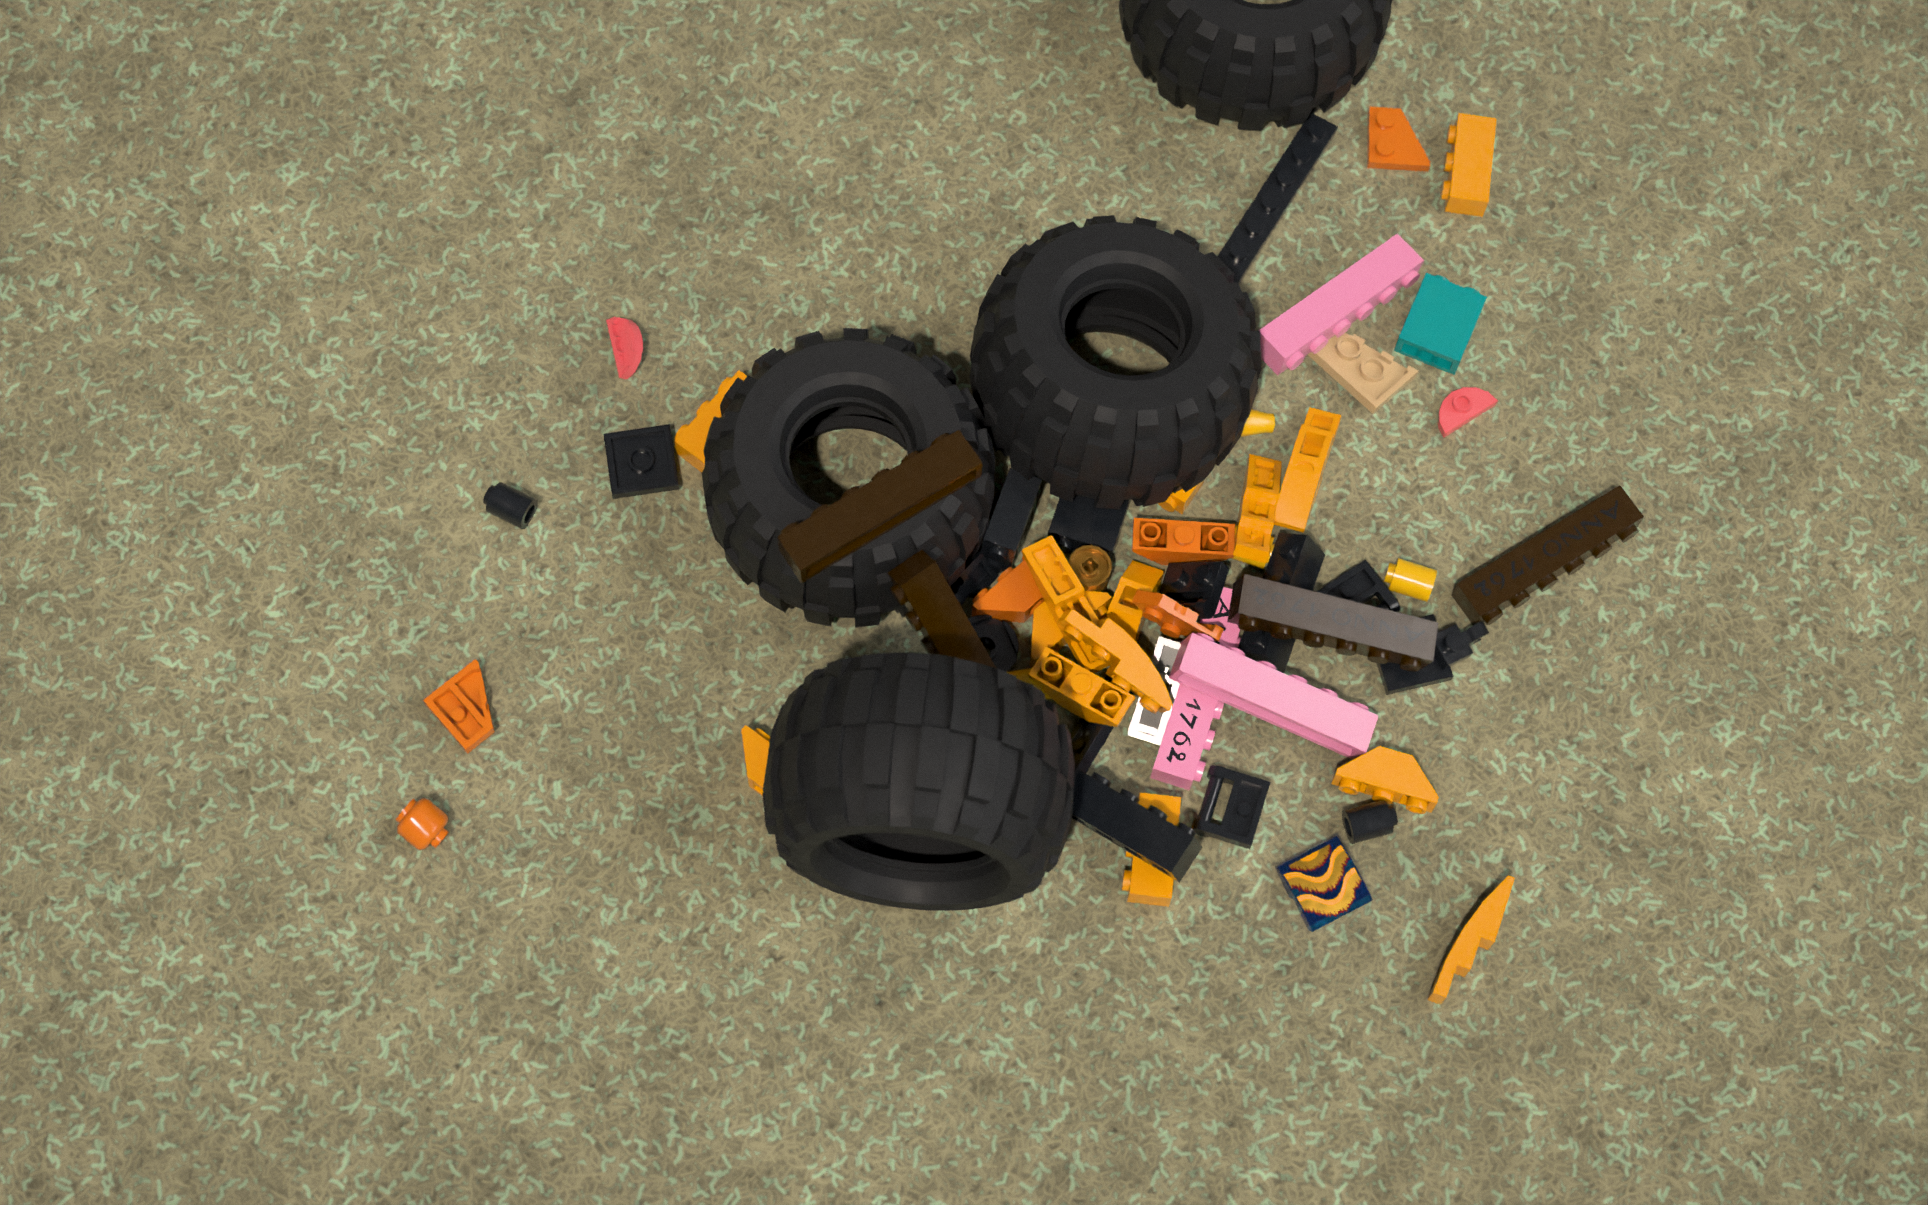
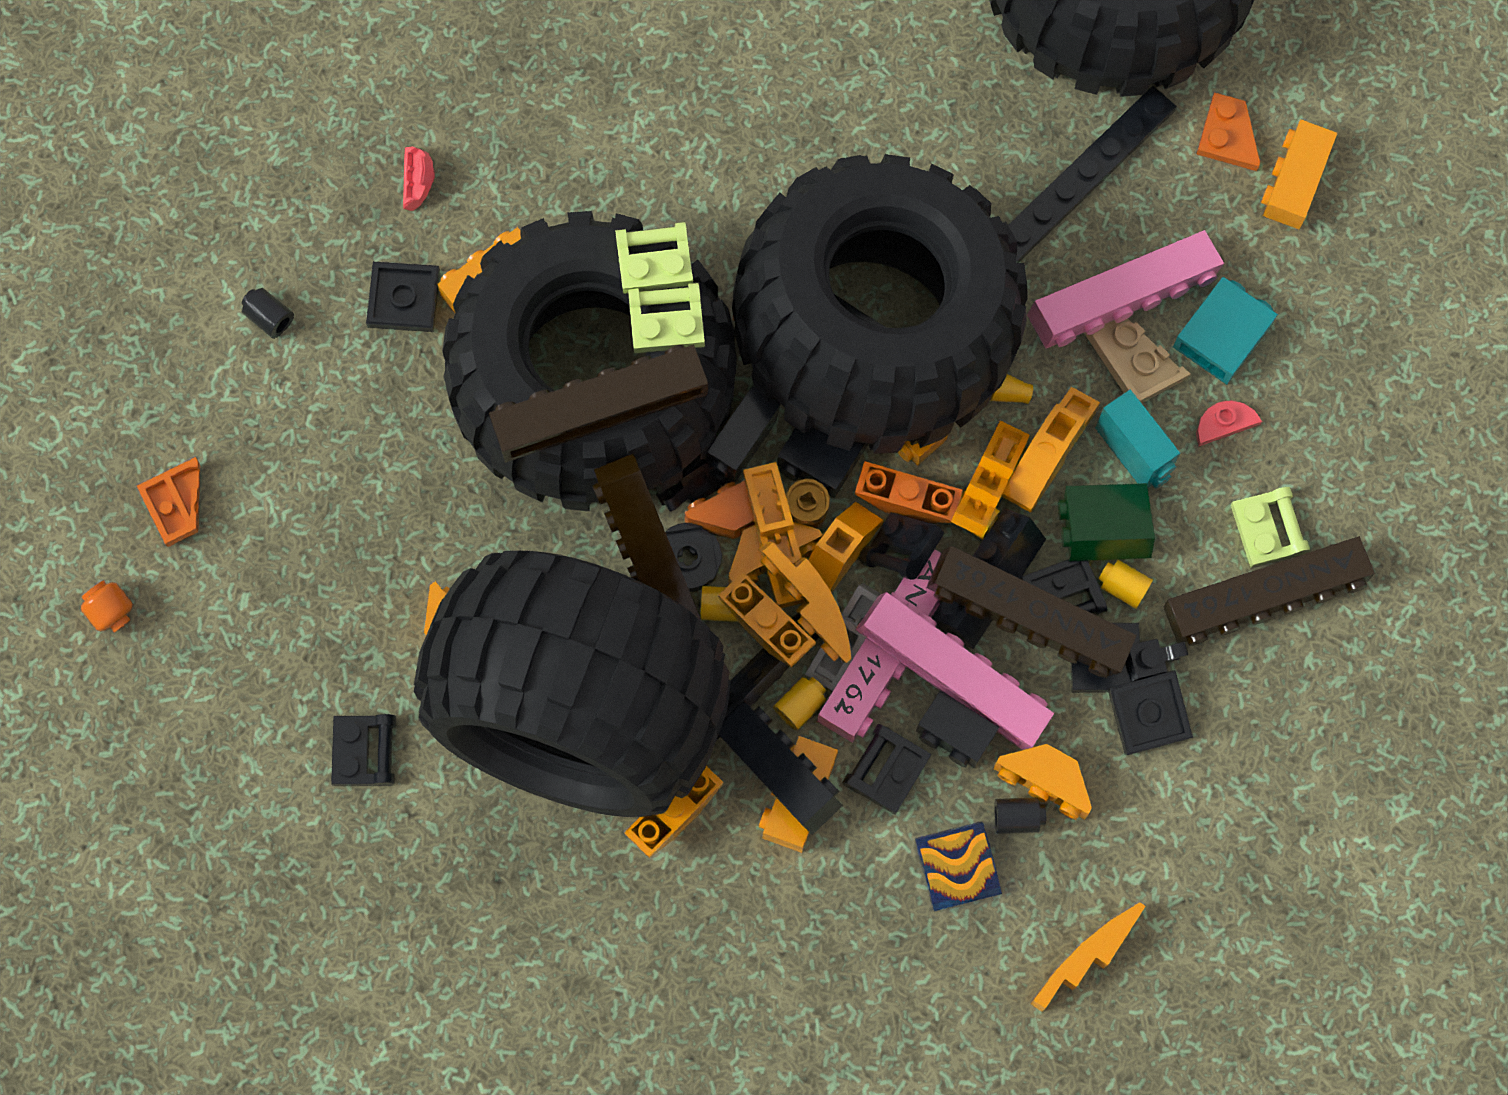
camera: 15 degrees right, 5 degrees up
(702, 909) = (351, 750): none -> black plate
(900, 368) = (657, 268): none -> yellowish green plate
(925, 423) = (666, 329): none -> yellowish green plate
(1025, 914) = (657, 831): none -> light orange slope
(1131, 762) = (800, 702): none -> yellow brick
(1172, 616) = (875, 571): orange wing -> none
(1288, 754) = (956, 730): none -> black brick
(1379, 525) = (1107, 522): none -> dark green brick
(1388, 442) = (1137, 440): none -> teal brick
(1467, 696) = (1150, 712): none -> black plate
(1522, 502) = (1259, 530): none -> yellowish green plate

